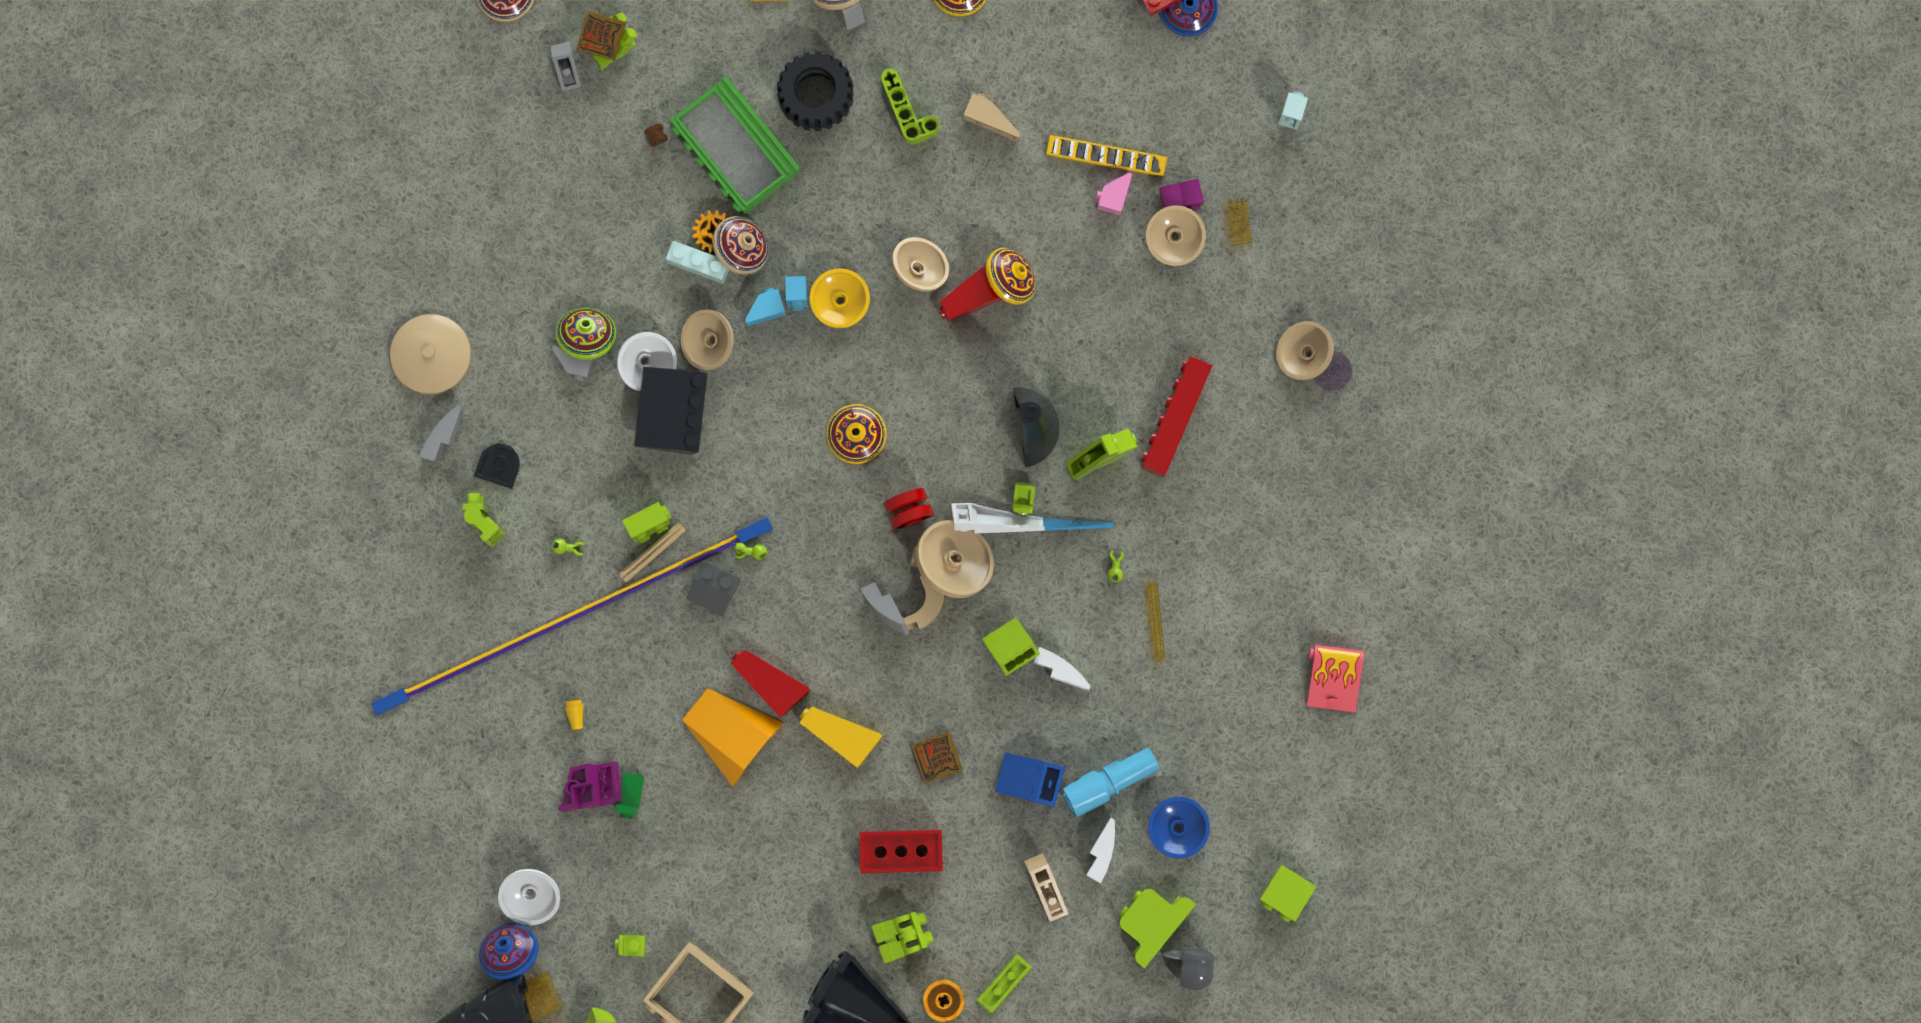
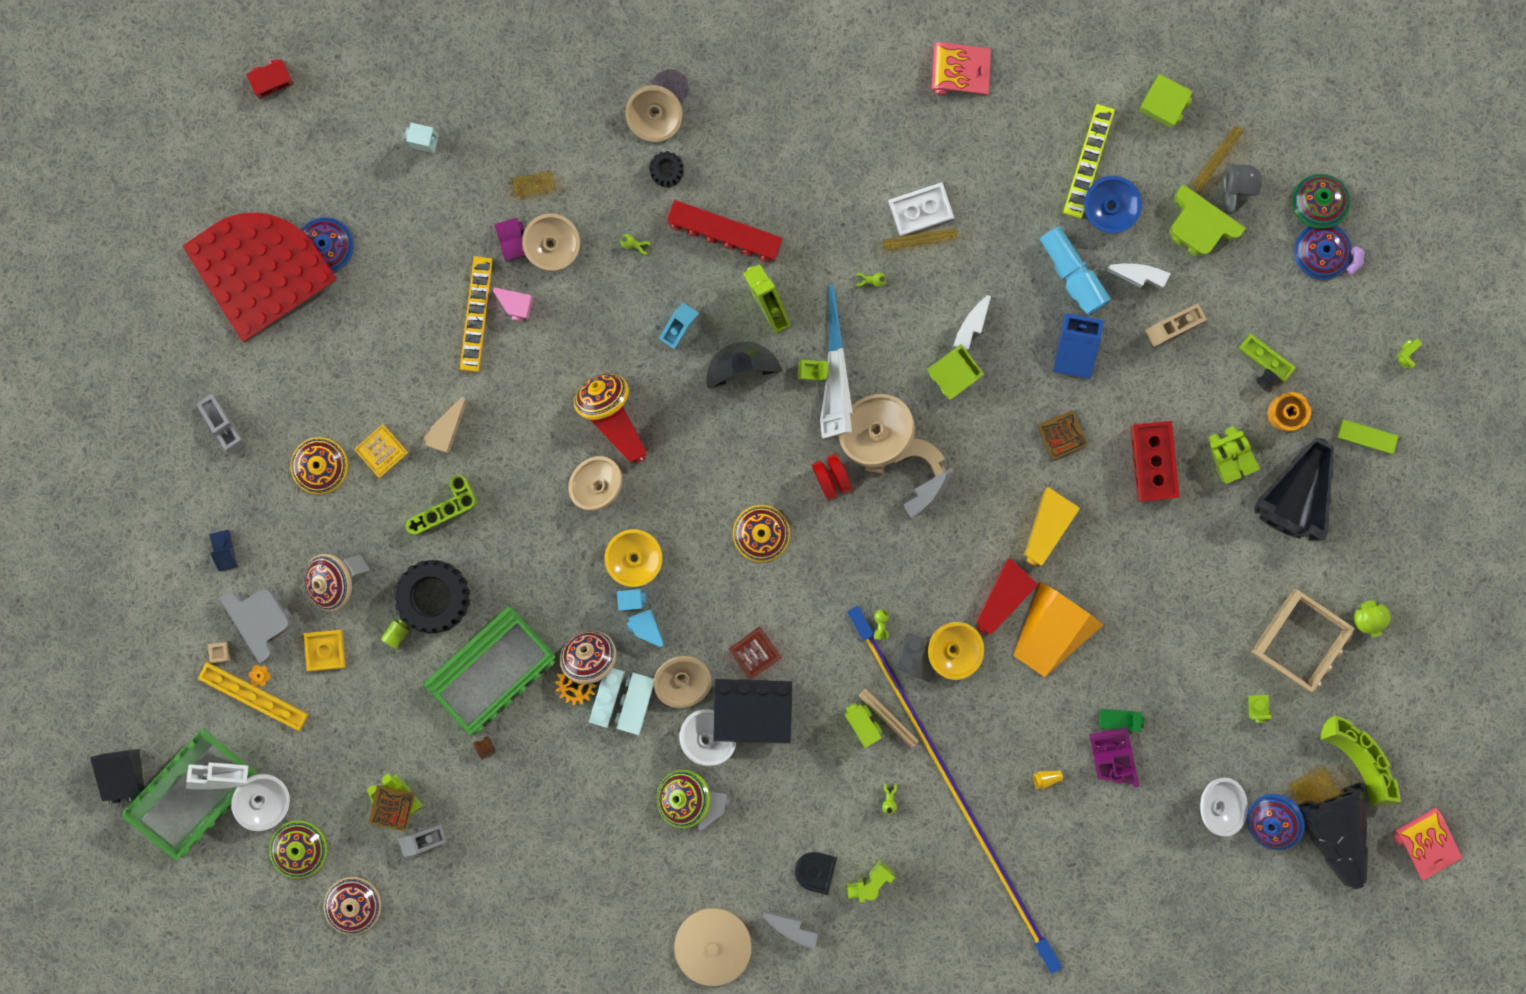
camera: 85 degrees left, 5 degrees up
(688, 290) = (635, 703): none -> light aqua brick
(704, 631) = (967, 652): none -> yellow dish
(731, 418) = (755, 653): none -> clear red tile
(780, 52) = (395, 633): none -> lime brick
(970, 50) = (381, 451): none -> yellow tile
(979, 981) = (1268, 380): none -> black wheel
(1080, 362) = (678, 325): none -> medium azure slope
(1170, 320) = (631, 242): none -> lime arm
(1187, 625) = (921, 209): none -> white tile
(1222, 946) = (1217, 158): none -> clear yellow axle
(1230, 808) = (1088, 160): none -> tile
(1252, 350) = (666, 180): none -> black tyre

